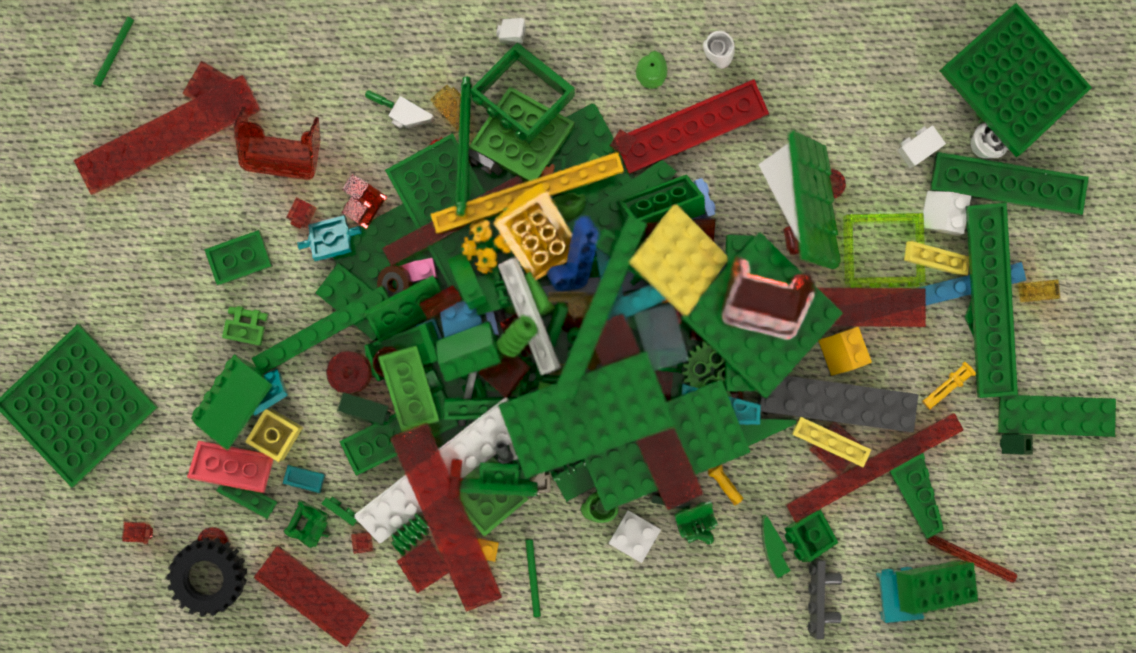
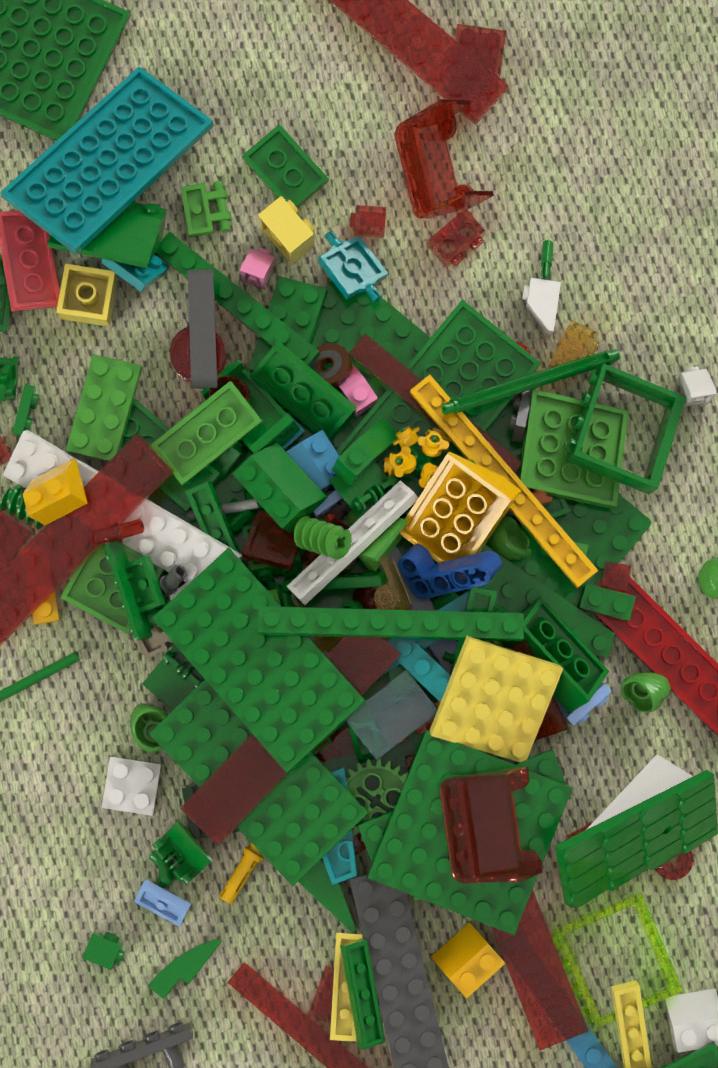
camera: 70 degrees right, 5 degrees down
(181, 383) = (107, 160): none -> teal plate
(283, 274) = (287, 229): none -> light yellow brick
(303, 305) = (257, 268): none -> bright pink slope
(304, 478) = (47, 352): teal tile -> none
(332, 362) = (202, 328): none -> dark grey beam
(335, 158) = (451, 235): none -> clear red brick
(361, 454) = (104, 408): none -> bright green plate
(363, 409) = (159, 389): dark green slope -> none
(364, 201) = (413, 290): clear red brick -> none
(409, 512) = (55, 493): none -> yellow slope
(440, 301) = (327, 429): clear red tile -> none
(638, 156) = (607, 602): none -> green plate
(710, 154) = (645, 691): none -> bright green hair
(723, 545) = (162, 902): none -> light blue plate
(740, 598) = (104, 950): none -> green brick
(810, 536) = (216, 1009): green plate -> none
(841, 432) = (362, 993): none -> green tile

